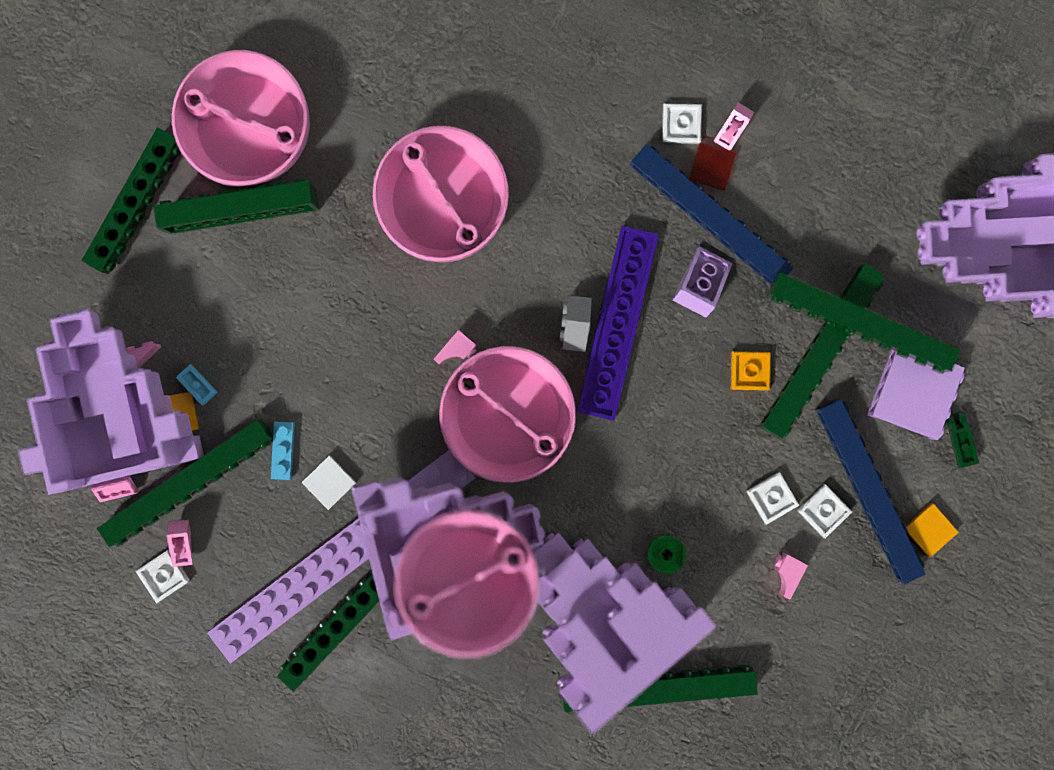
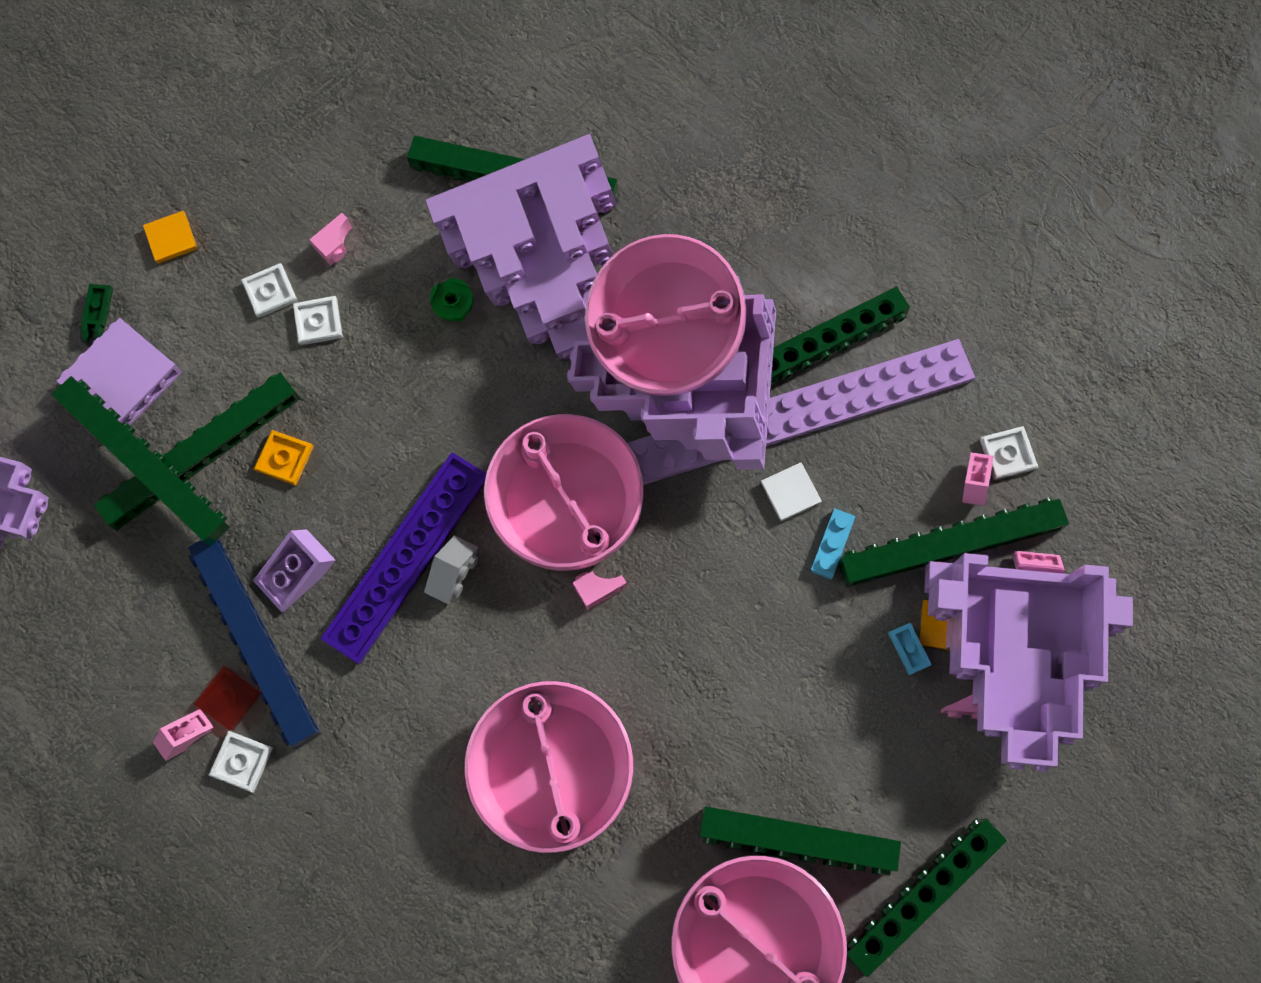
camera: 160 degrees left, 15 degrees down
(870, 491) = (213, 295): dark blue brick -> none

